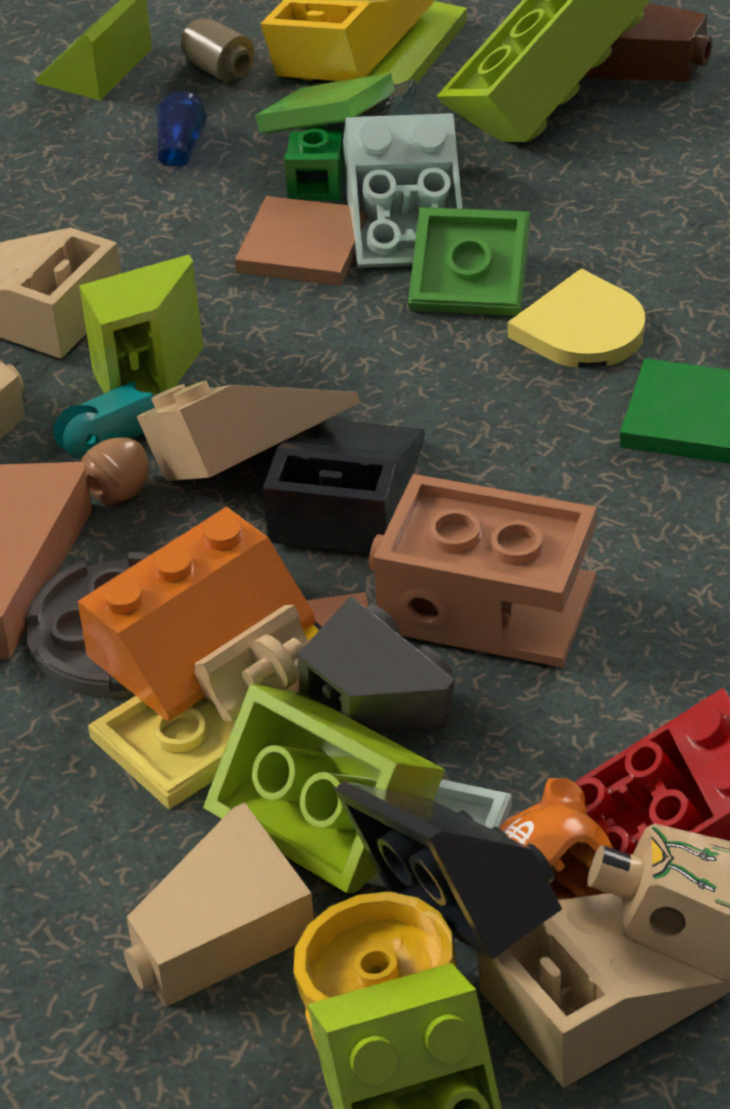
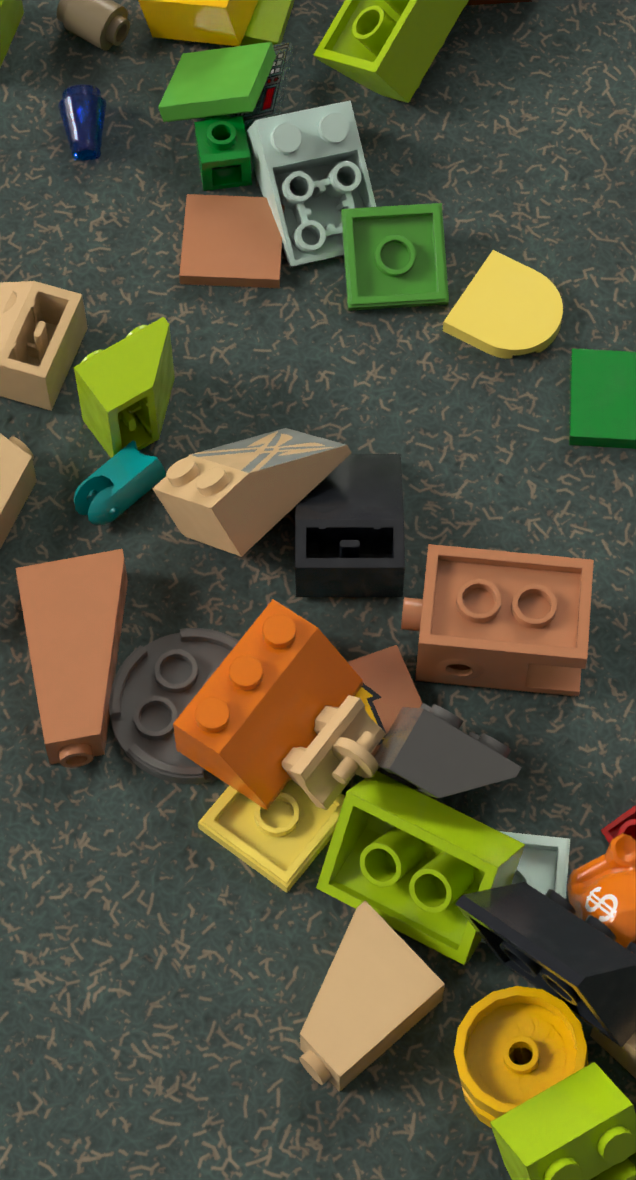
camera: 15 degrees left, 20 degrees up
(116, 470) = (144, 541): medium nougat piece -> none

